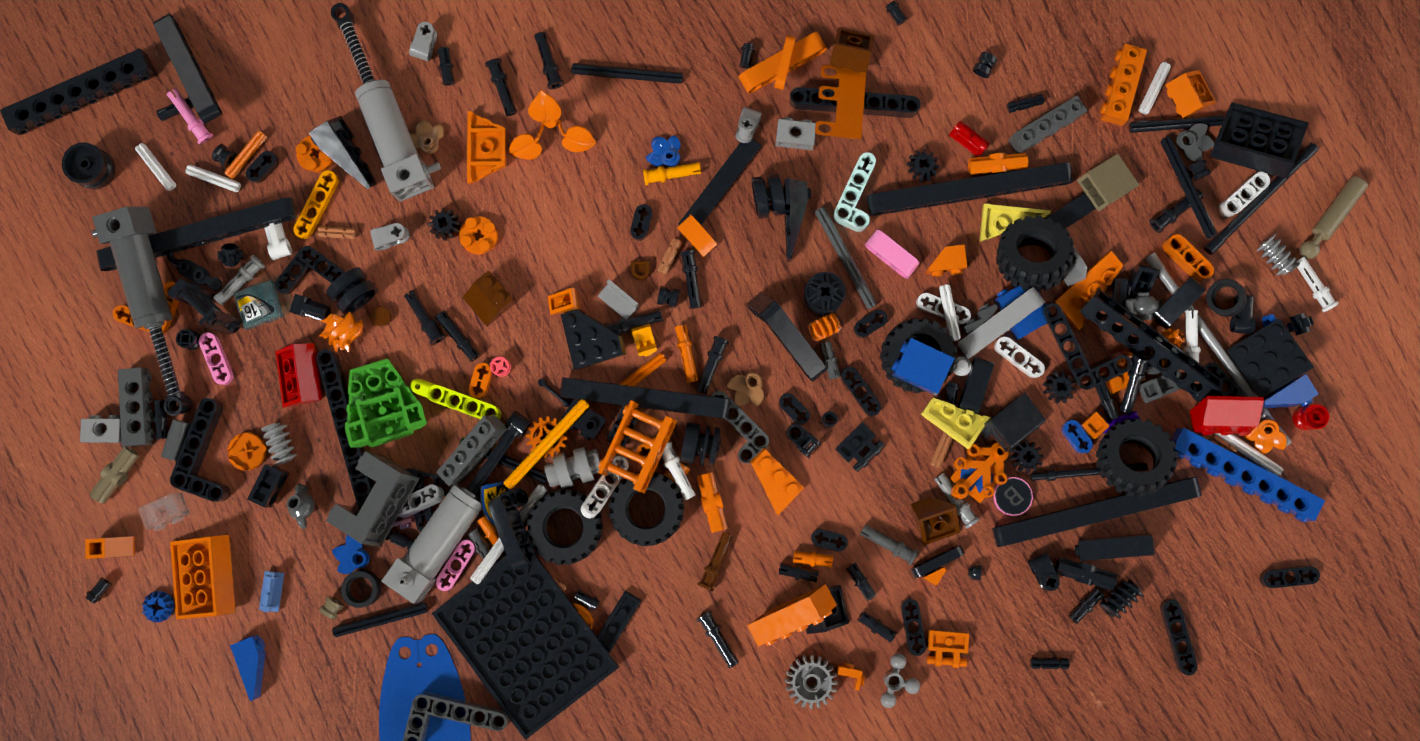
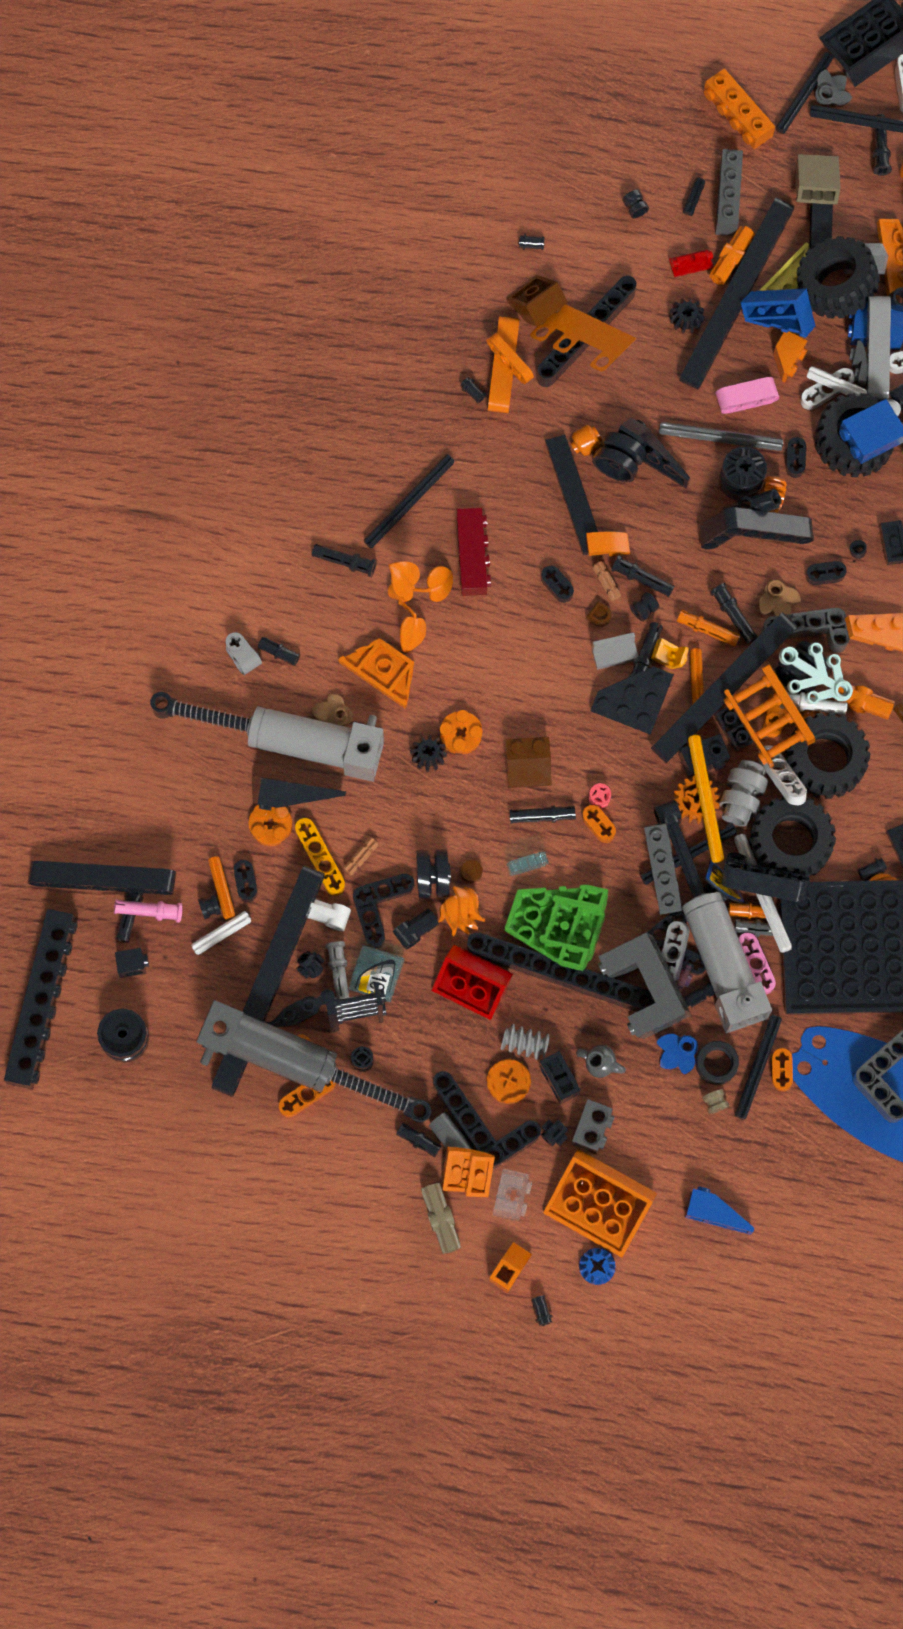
camera: 60 degrees left, 10 degrees down
(92, 429) = (388, 1211): light grey brick -> none
(128, 399) = (417, 1176): dark grey brick -> none
(146, 133) = (131, 962): none -> black brick
(155, 167) = (168, 978): white axle -> none
(157, 469) = (467, 1171): none -> orange slope
(216, 374) = (415, 1047): bright pink beam -> none
(228, 509) = (554, 1132): none -> black gear
(251, 530) = (588, 1125): none -> dark grey brick
(271, 591) = (659, 1148): medium blue hinge -> none
(386, 236) = (401, 813): light grey piece -> none
(392, 642) = (776, 1069): none -> orange beam
(412, 351) = (527, 863): none -> clear light blue beam
(427, 390) = (575, 876): neon yellow piece -> none
(428, 325) = (512, 832): black pin -> none
(499, 78) = (328, 613): black pin -> none
(541, 382) = (640, 771): black hinge -> none
(563, 301) = (581, 698): orange slope -> none
(619, 145) = (472, 551): none -> dark red brick
(662, 150) = (504, 519): blue plate -> none
(662, 174) = (527, 534): light orange pin -> none
(695, 460) = (818, 675): none -> light aqua plant
(747, 124) = (538, 431): light grey piece -> none
(766, 163) = (586, 440): none -> orange head
(786, 139) = (573, 409): light grey brick -> none
(800, 319) = (762, 502): none -> black piece
(803, 440) = (863, 584): black piece -> none
(830, 360) = (804, 511): dark grey axle -> none
(847, 383) = (844, 513): black beam -> none
(856, 189) = (669, 383): light aqua beam -> none
(976, 228) = (781, 309): none -> blue wedge
(1154, 88) = (760, 87): white axle -> none
(1190, 93) = (787, 64): orange slope -> none
(1199, 170) = (860, 102): black wheel -> none

